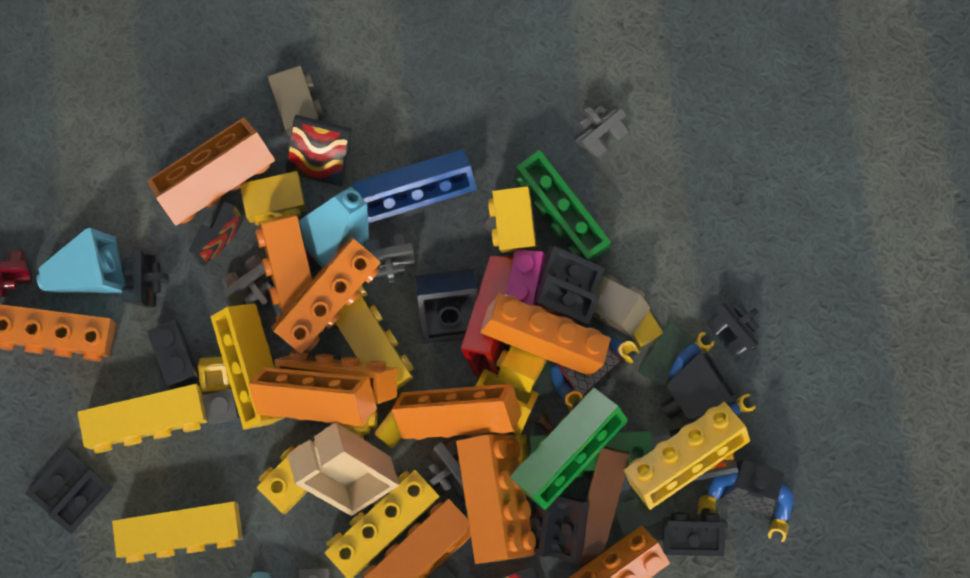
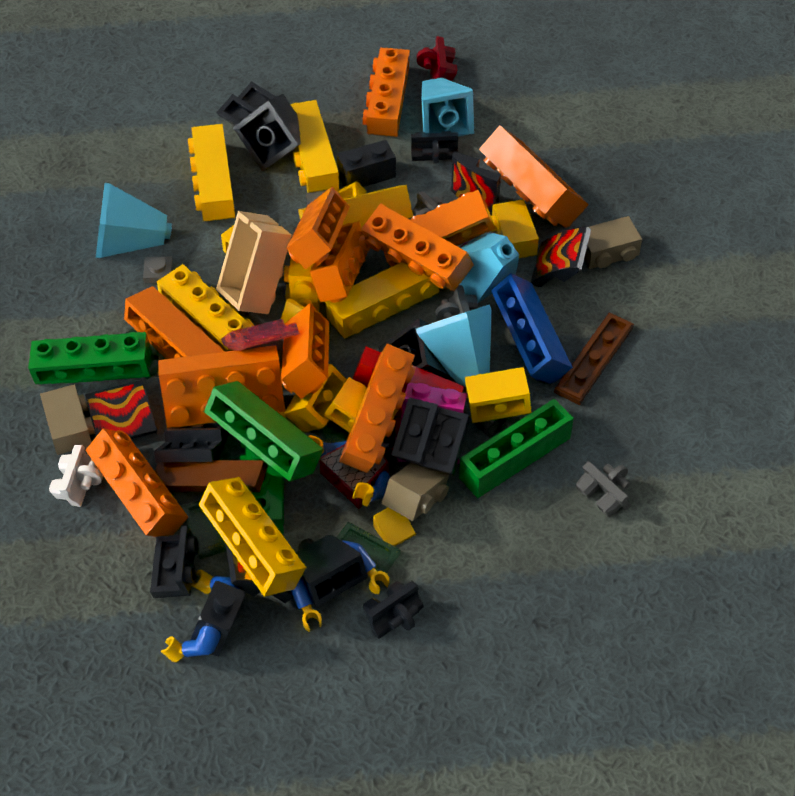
camera: 90 degrees right, 25 degrees down
(125, 463) = (270, 131): none -> black slope
(439, 256) = (461, 343): none -> medium azure slope
(440, 128) = (594, 358): none -> reddish brown tile
(442, 459) = (259, 335): none -> clear pink slope

